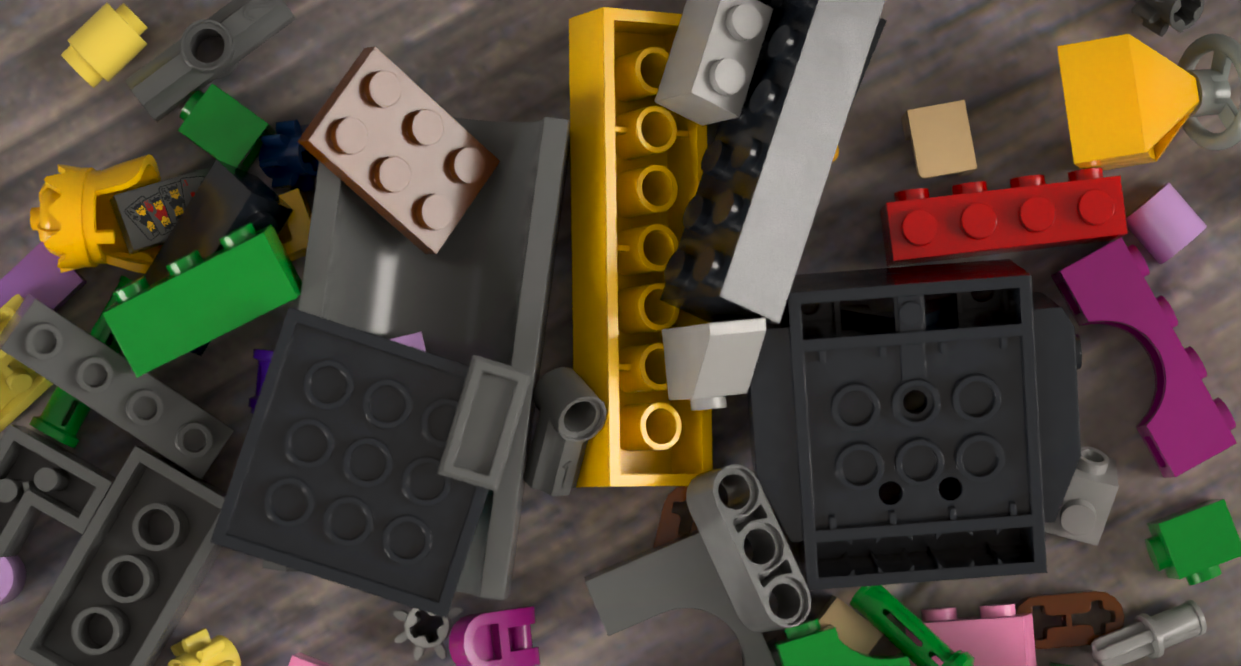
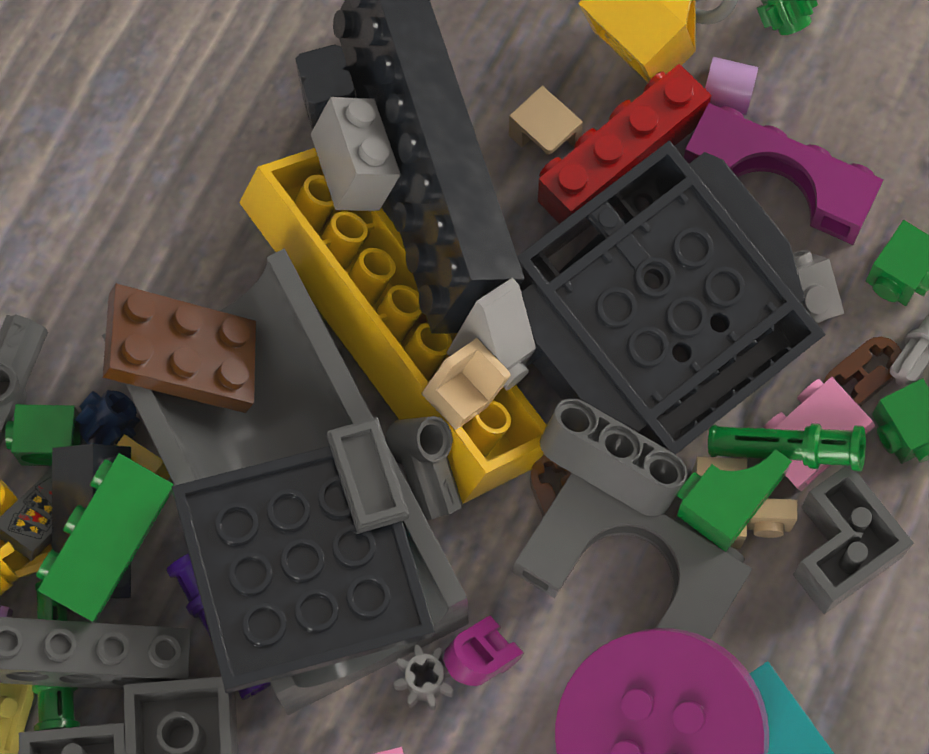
camera: 35 degrees left, 15 degrees down
(650, 386) = (466, 383): none -> tan panel

